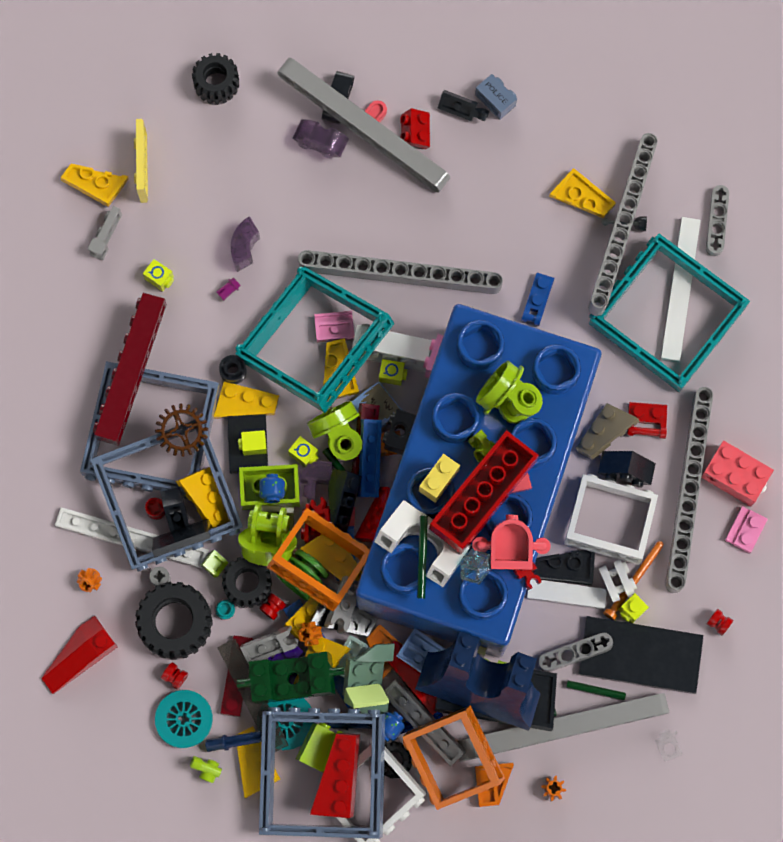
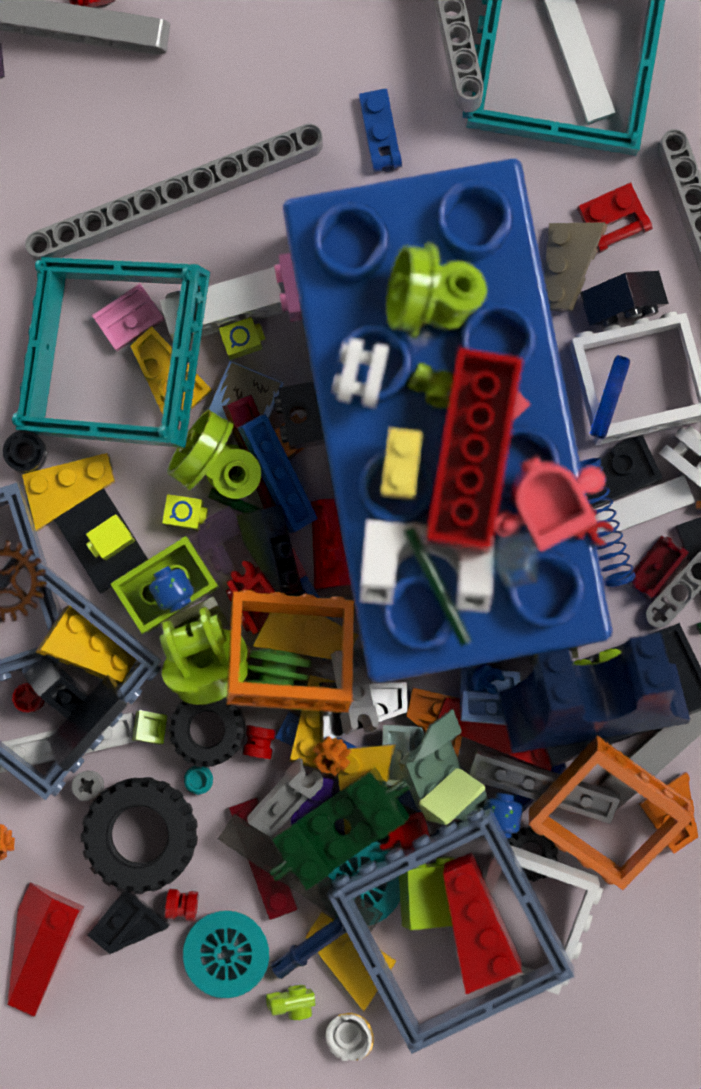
camera: 25 degrees left, 10 degrees up
(136, 669) = (126, 923): none -> black wing
(228, 807) = (350, 1037): none -> white hair
(328, 702) = (408, 832): none -> red plate
(424, 639) = (484, 676): none -> blue plate
(445, 405) = (346, 385): none -> white brick
(541, 628) = (610, 581): none -> blue piece
(561, 633) = (657, 566): none -> dark red hinge
(585, 518) = (610, 397): none -> clear blue axle

